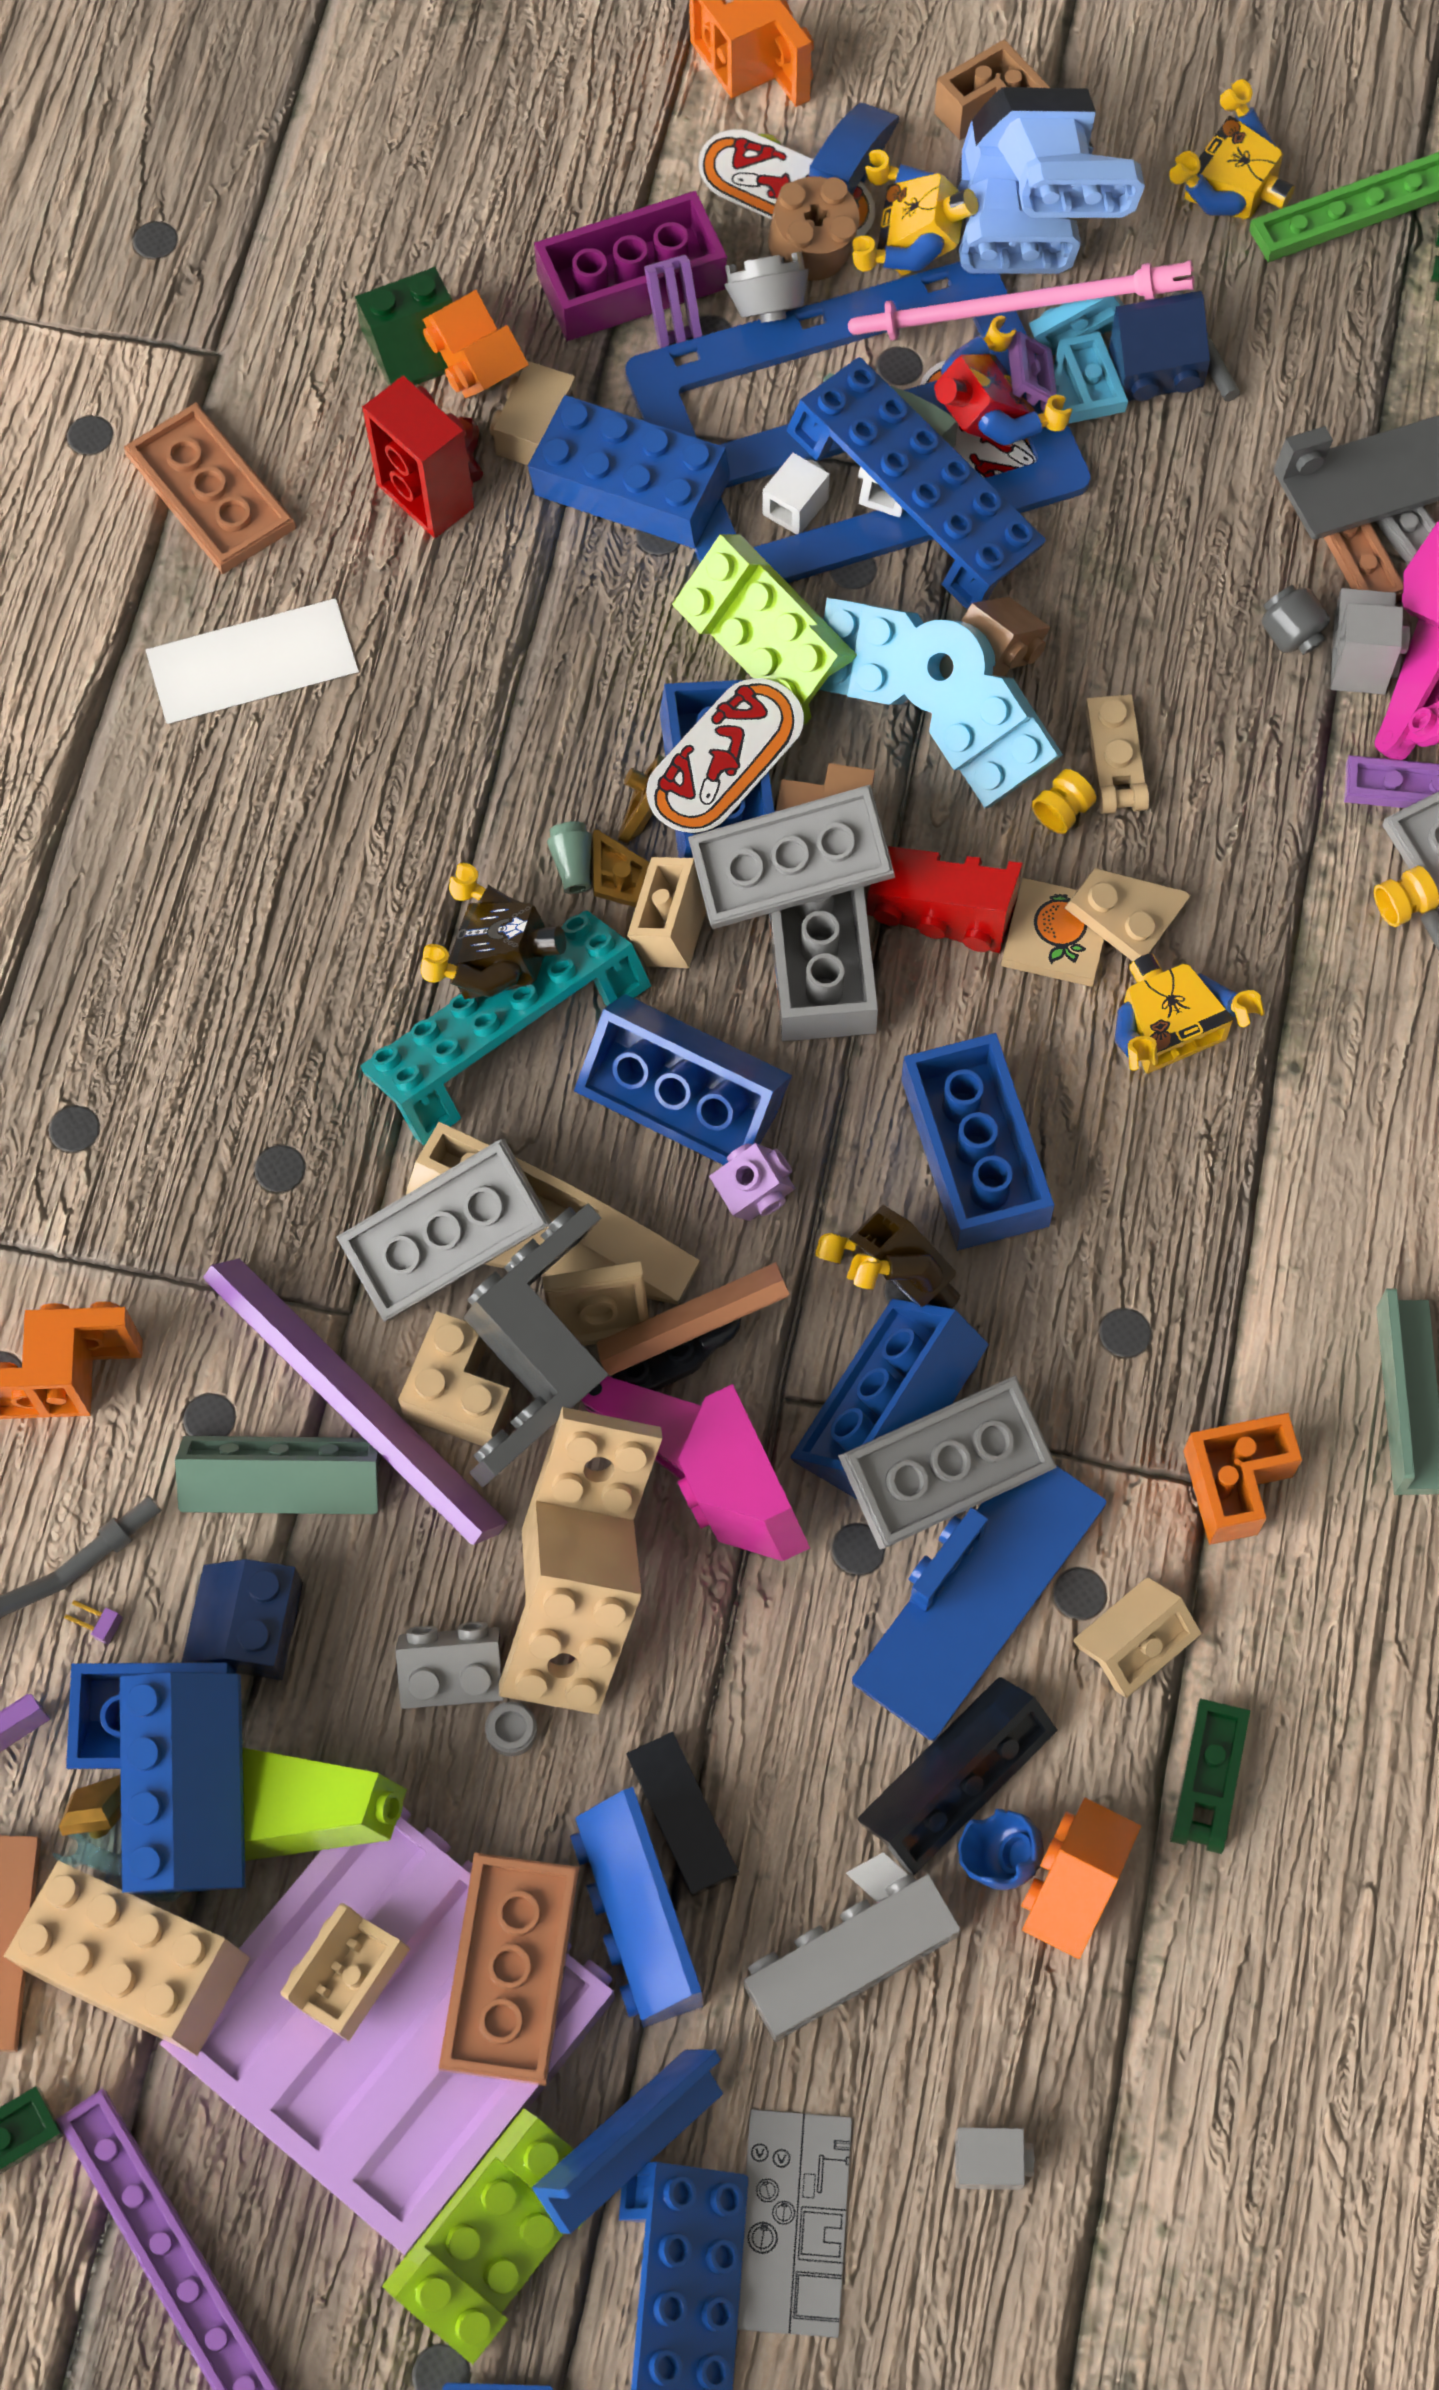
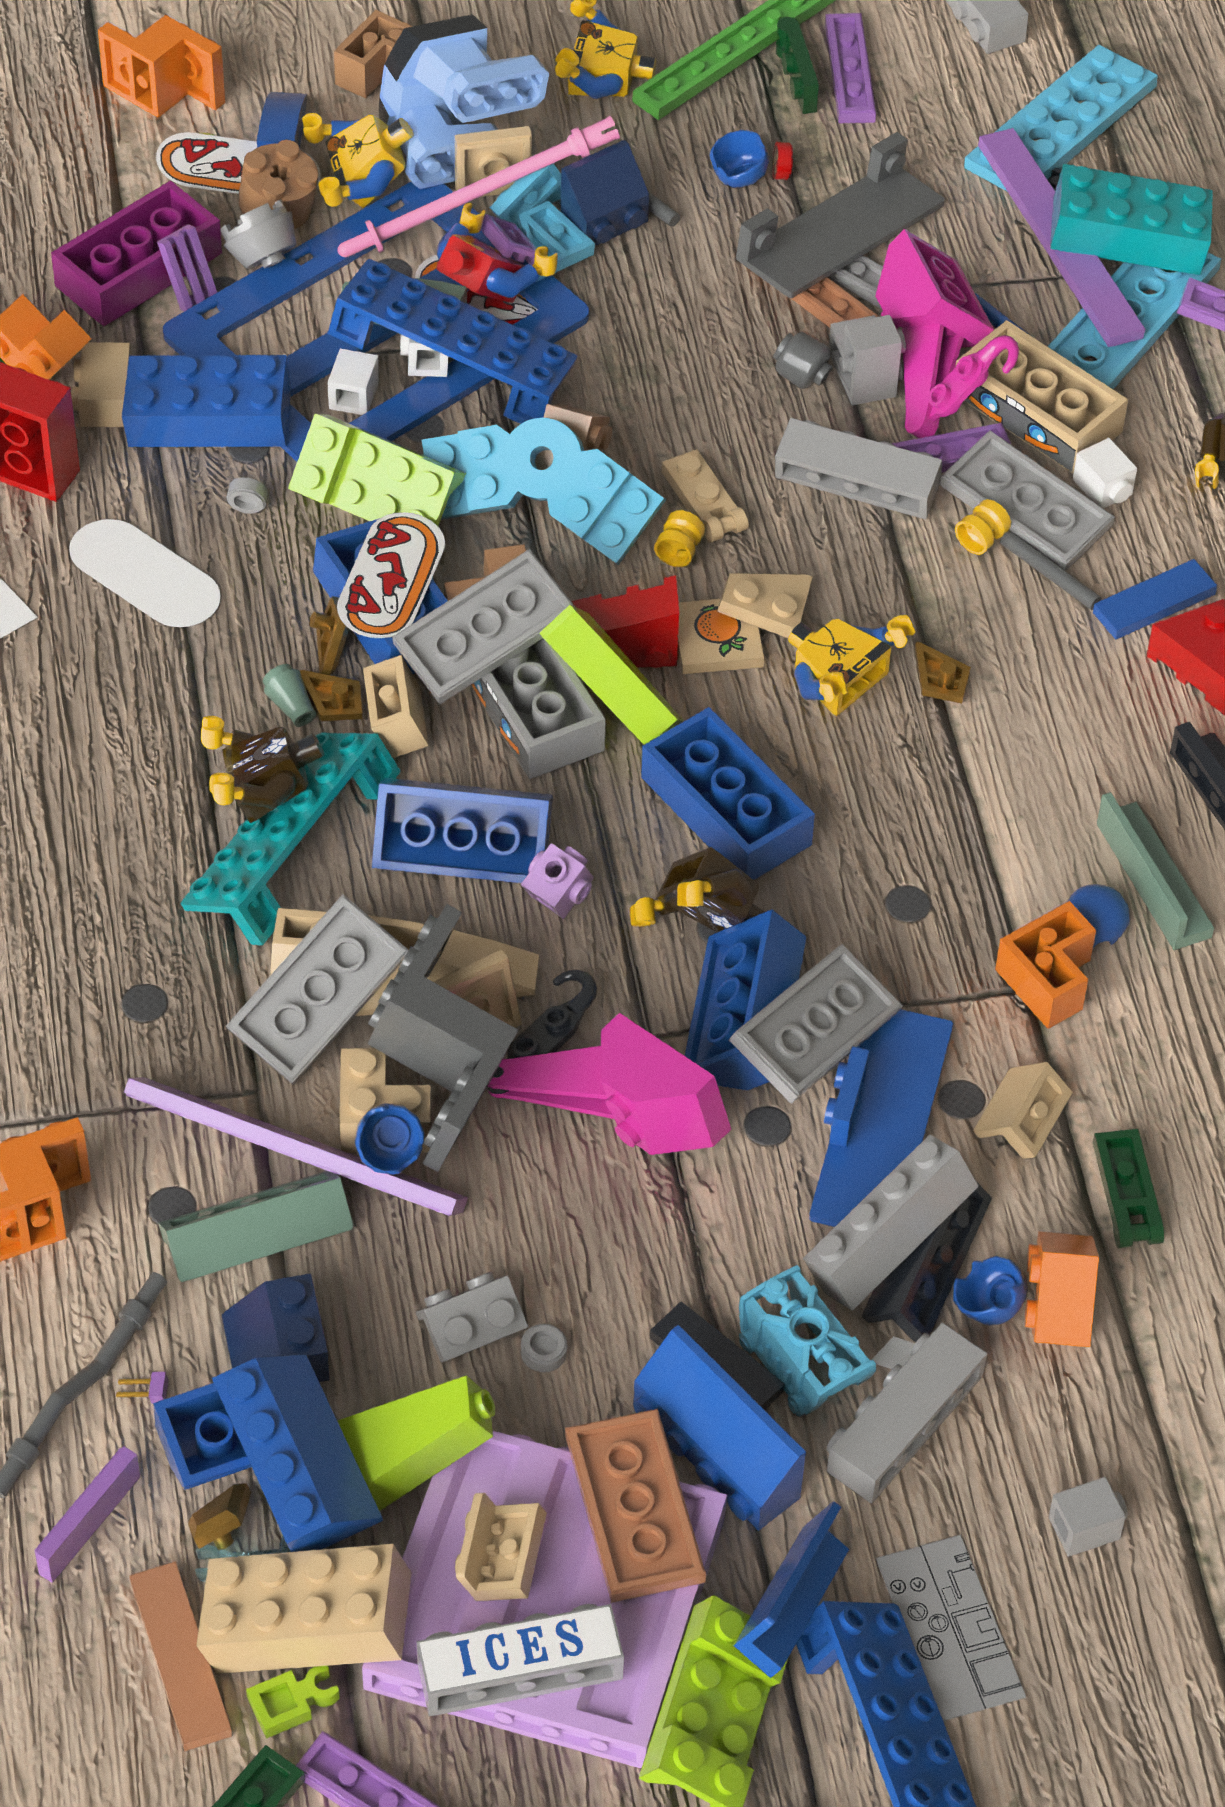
camera: 25 degrees left, 15 degrees down
(77, 2039) = (285, 1702): none -> lime plate
(311, 2108) = (519, 1659): none -> brick
(436, 1441) = (389, 1138): none -> blue hair
(489, 654) = (144, 573): none -> white sticker
(580, 1561) = (553, 1187): tan bracket -> none
(627, 598) = (247, 495): none -> light grey tile
(692, 1319) = (567, 981): nougat tile -> none
(755, 1851) = (788, 1354): none -> medium azure piece
(906, 959) = (610, 674): none -> lime slope
(924, 1733) = (891, 1222): none -> light grey brick
(1052, 261) = (489, 152): none -> tan tile
(1281, 1064) = (940, 674): none -> pearl gold piece
(1298, 777) = (858, 468): none -> light grey brick
(1325, 1424) = (1104, 911): none -> blue hair
(1333, 342) = (739, 158): none -> blue hair
(1382, 358) = (782, 160): none -> red tile

